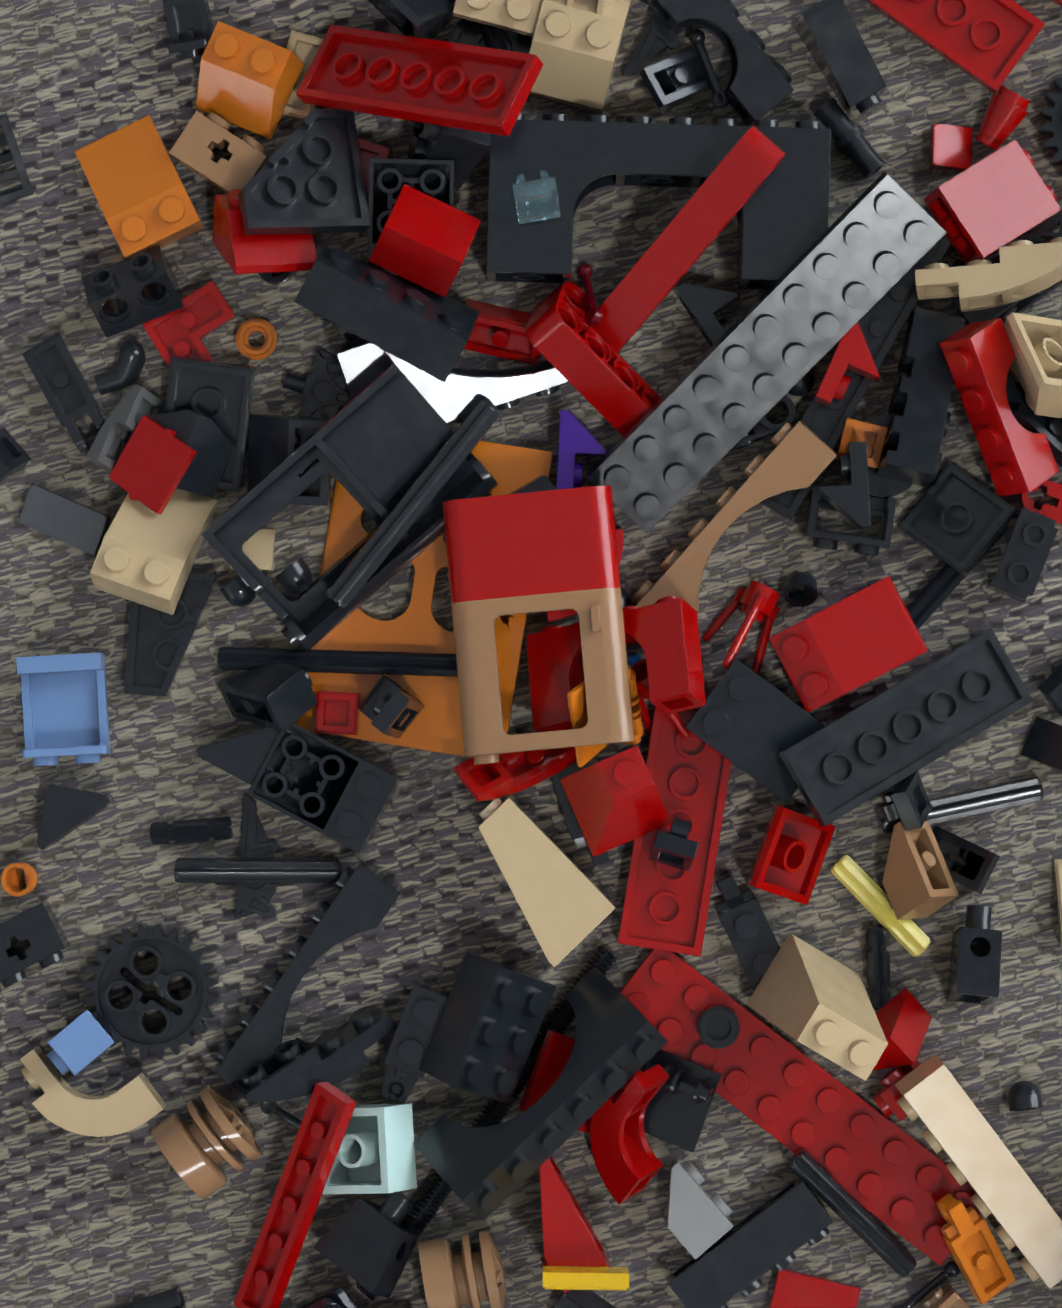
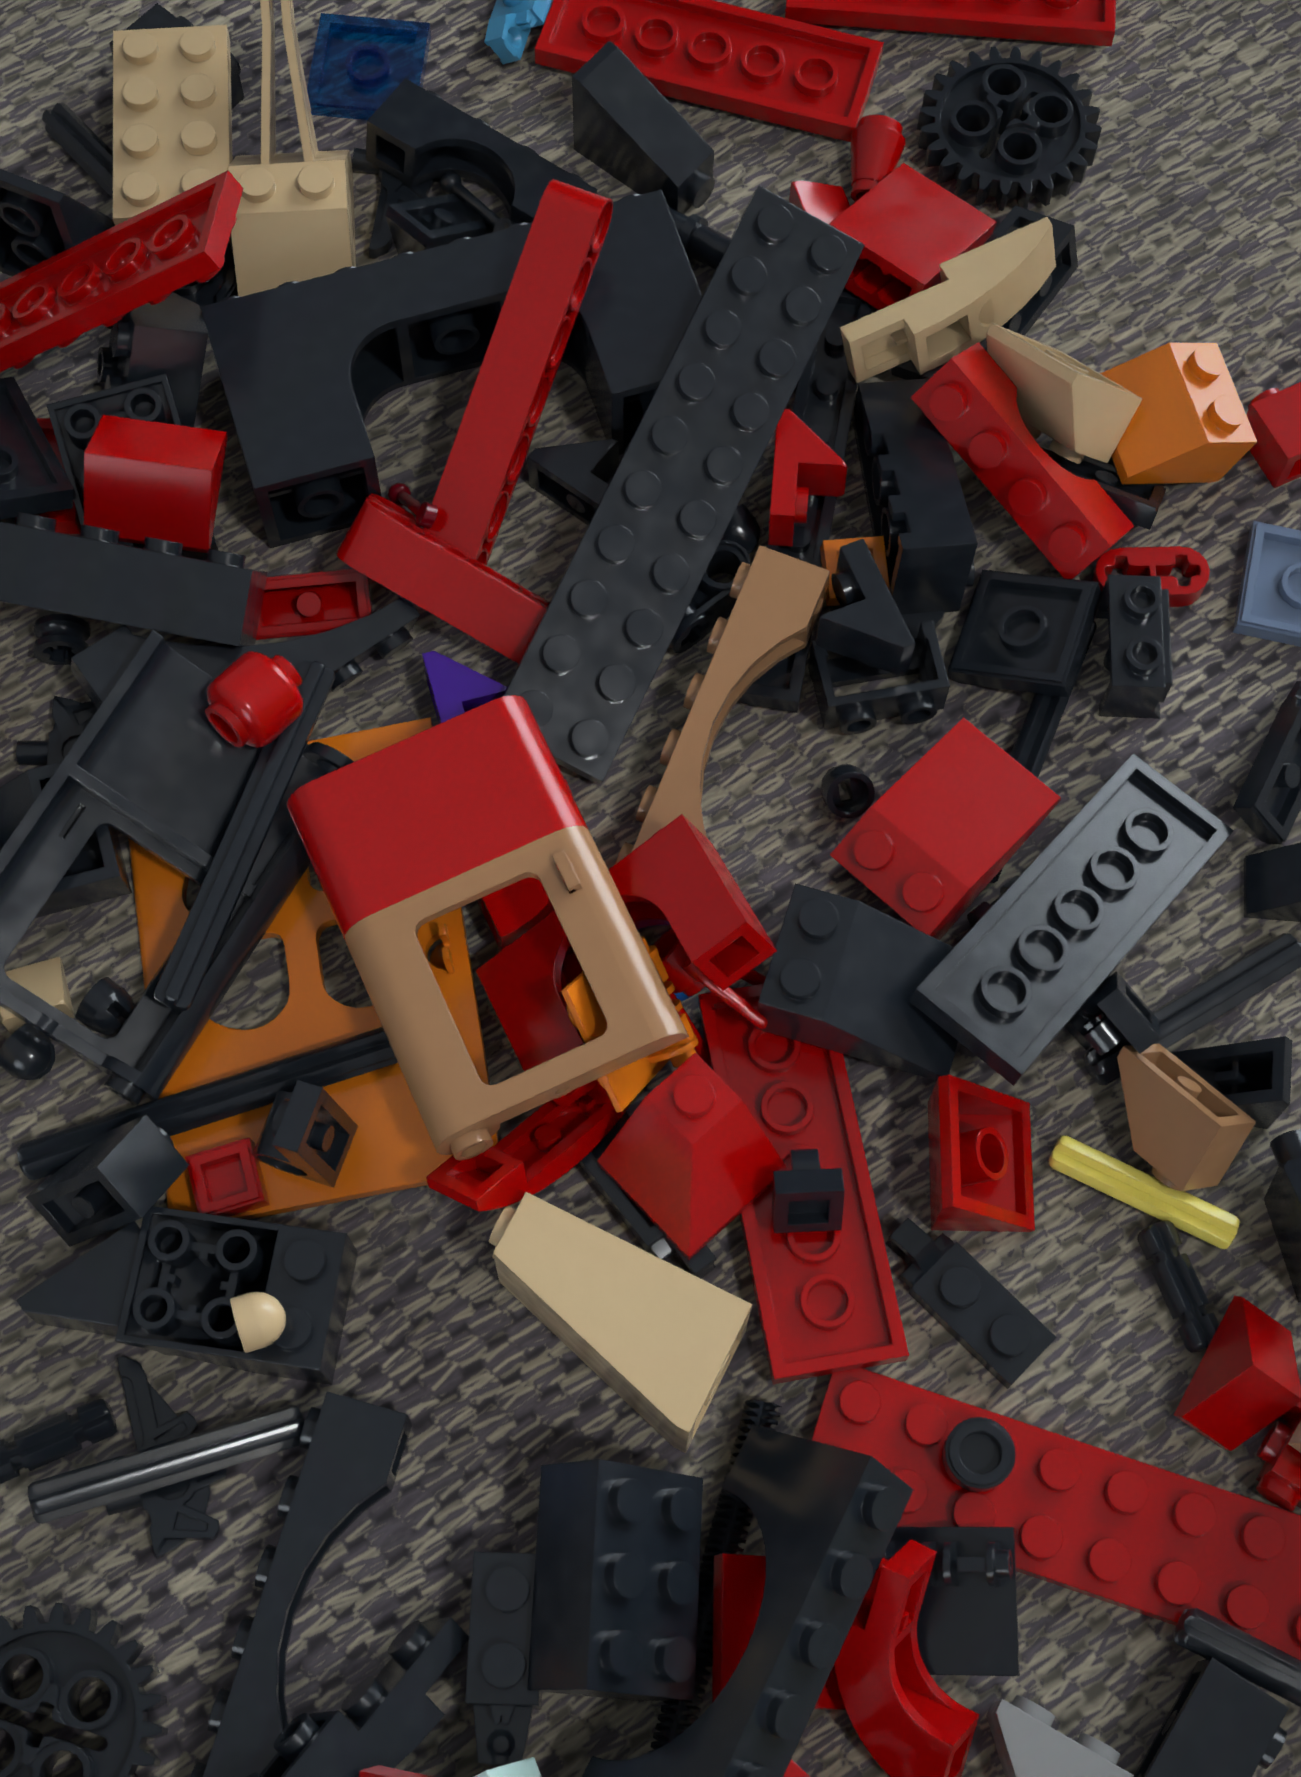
camera: 25 degrees left, 20 degrees down
(333, 817) = (258, 1319): none -> tan hinge
(443, 426) = (254, 699): none -> red head
(536, 198) = (292, 369): clear light blue tile -> none
(756, 602) = (792, 833): red plant -> none
(821, 1006) = (1130, 1364): tan slope -> none

